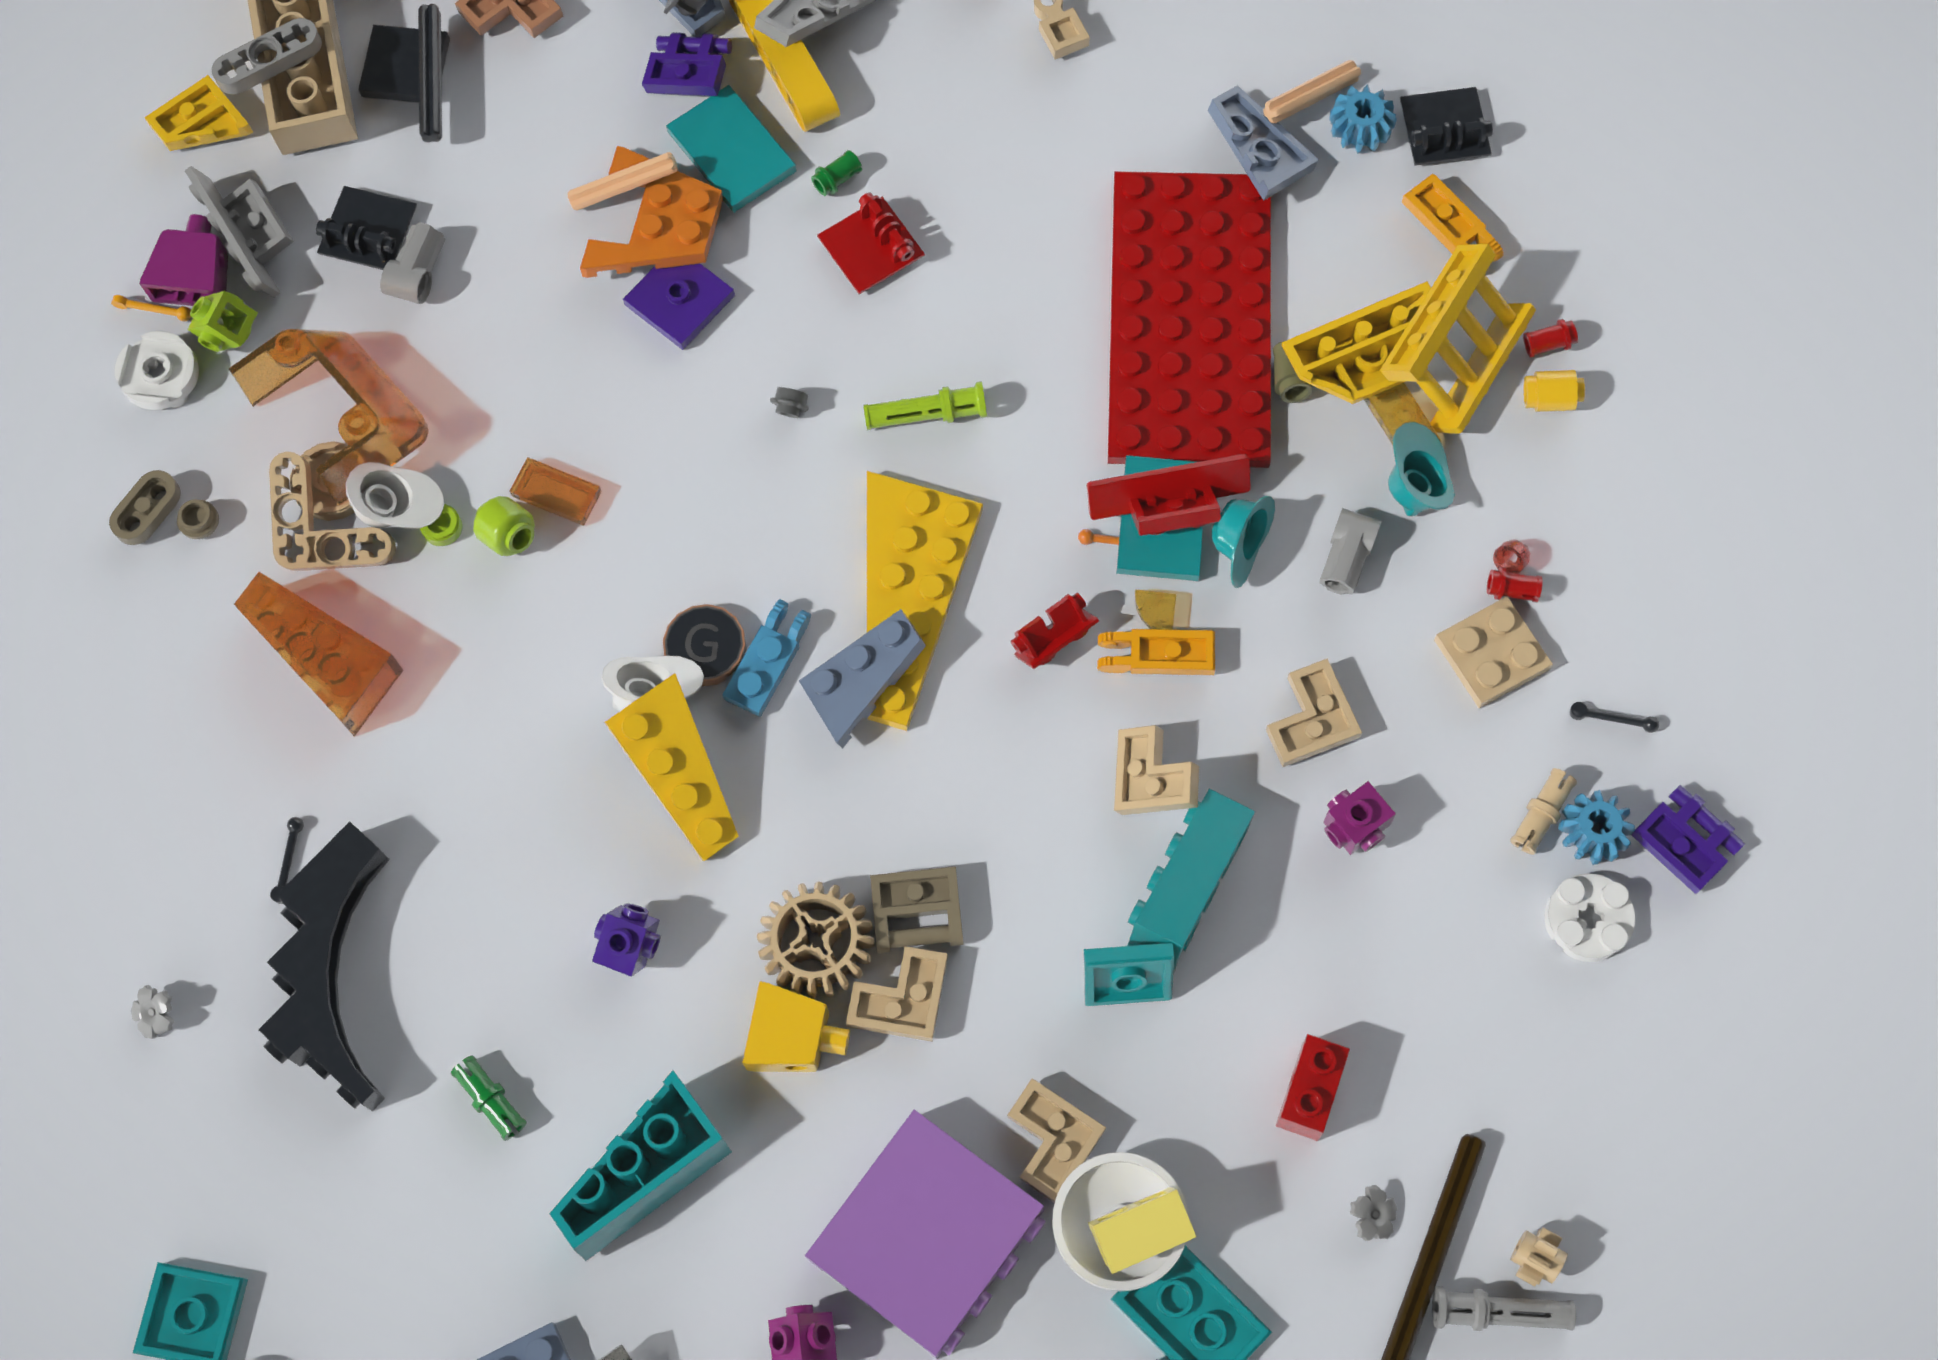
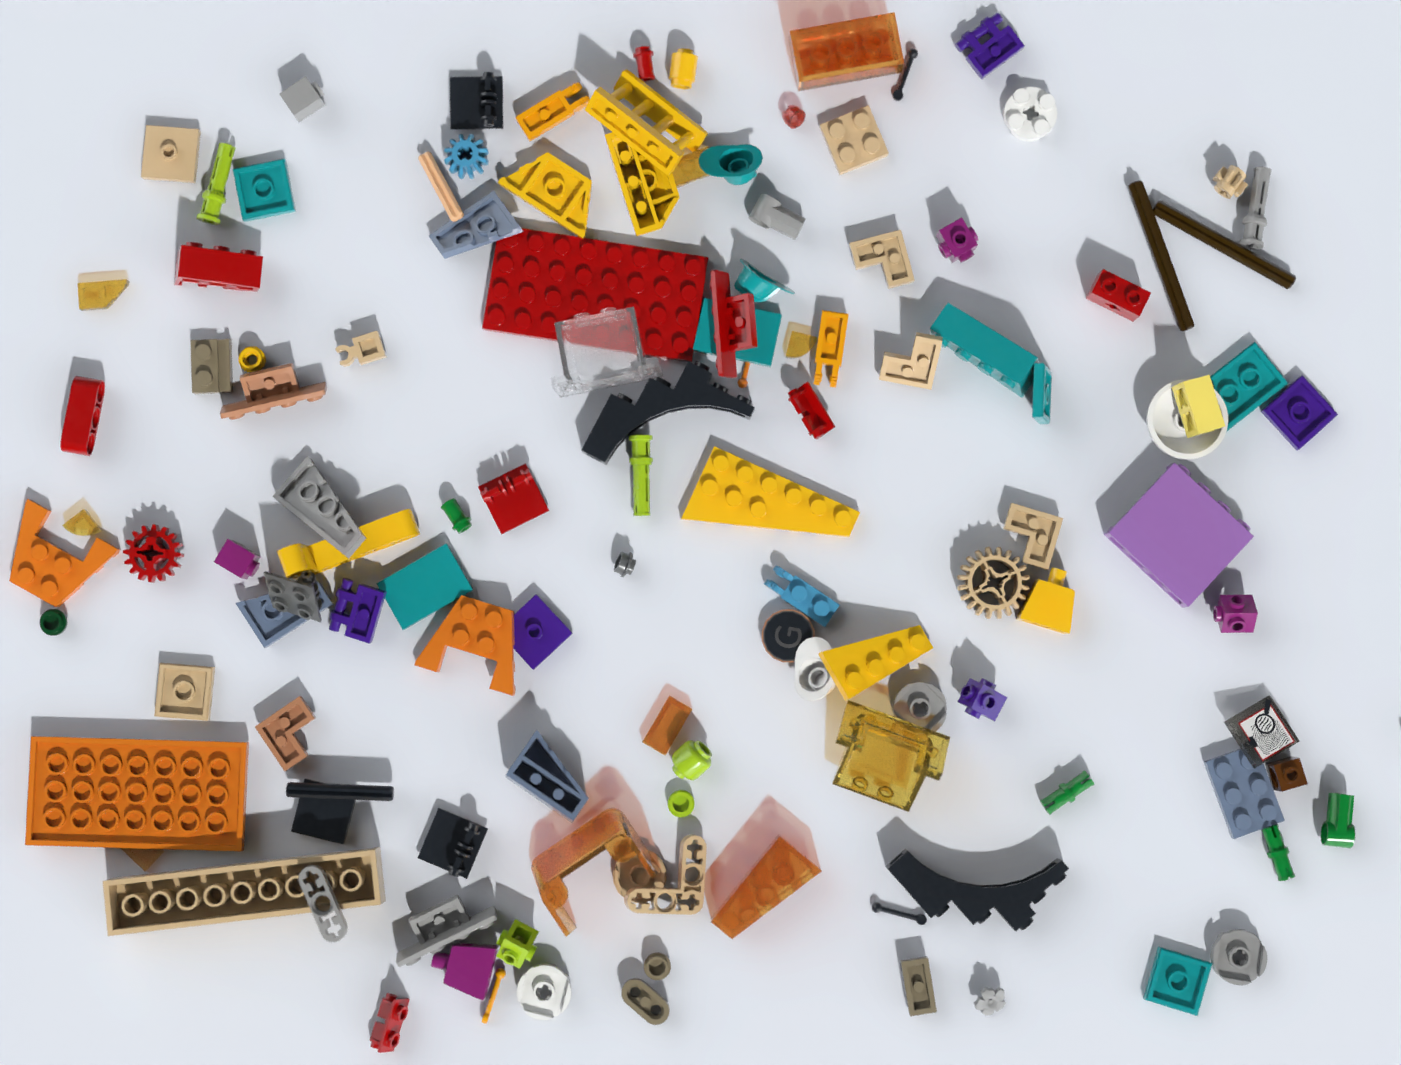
camera: 85 degrees left, 15 degrees up
(105, 181) = (386, 1035): none -> red hinge
(173, 898) = (918, 986): none -> dark tan plate
(198, 117) = (349, 959): yellow wing -> none
(393, 496) = (664, 830): white piece -> none
(410, 274) = (493, 813): light grey piece -> none
(463, 330) = (546, 779): none -> sand blue wedge
(528, 796) = (887, 755): none -> clear yellow windscreen
(605, 827) = (919, 693): none -> light grey plate
(622, 181) = (446, 662): light nougat axle -> none
(641, 1169) = (1122, 696): teal wedge -> none
(858, 675) = (825, 536): sand blue wing -> none
(916, 895) = (971, 518): dark tan plate -> none
(1042, 413) = (657, 399): none -> black arch
(1065, 1133) = (1130, 445): tan plate -> none
(1096, 318) = (602, 352): none -> clear windscreen
(1286, 379) = (652, 238): olive cone -> none
(1332, 240) = (554, 191): none -> yellow wing
(1376, 1214) = (1194, 272): light grey plant -> none
(1391, 1156) = (1161, 256): none -> dark brown axle
(1514, 585) = (811, 125): red pin -> none
(1543, 811) = (962, 128): tan pin -> none
(1612, 830) = (983, 106): dark azure gear -> none
(1629, 614) = (846, 51): none -> clear orange brick

